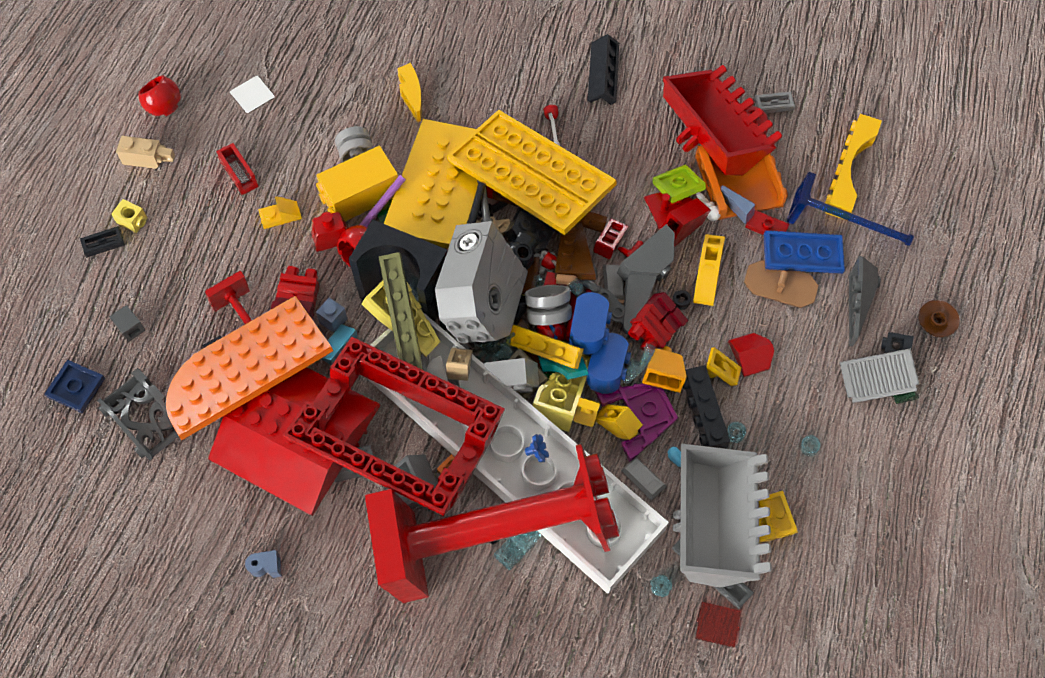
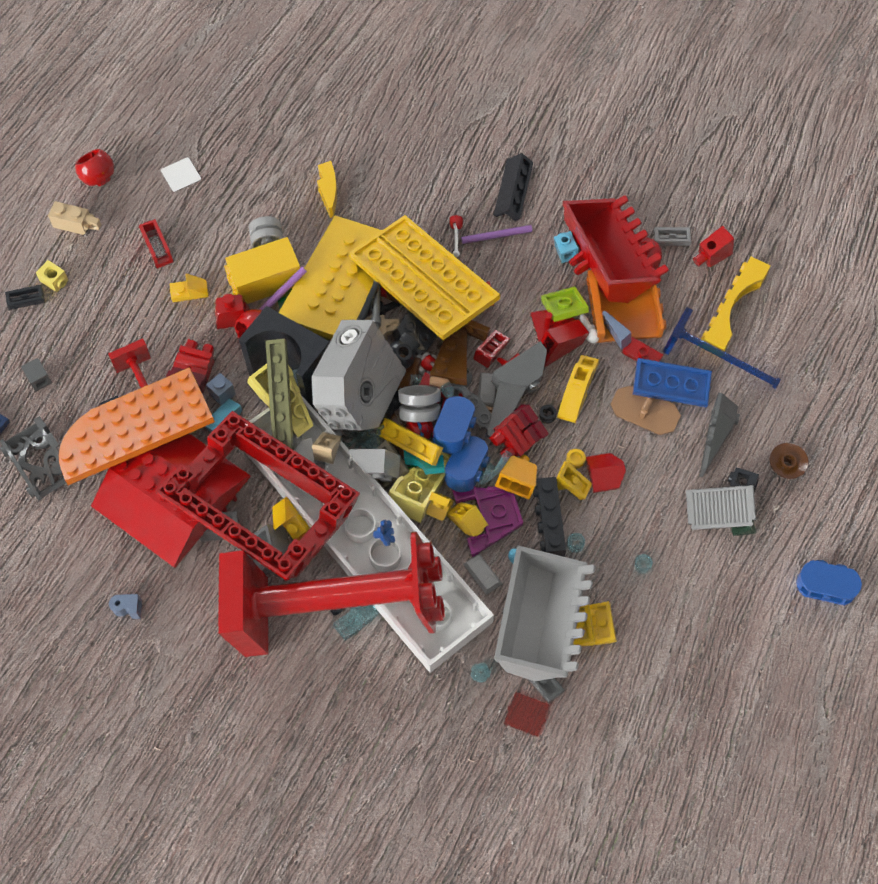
camera: 10 degrees right, 0 degrees up
(426, 443) = (286, 514): none -> yellow slope
(594, 120) = (496, 234): none -> medium lavender bar
(669, 124) = (565, 246): none -> medium azure brick
(719, 341) = (576, 458): none -> yellow tile
(822, 109) = (715, 248): none -> red torso
(1005, 440) = (829, 582): none -> blue brick

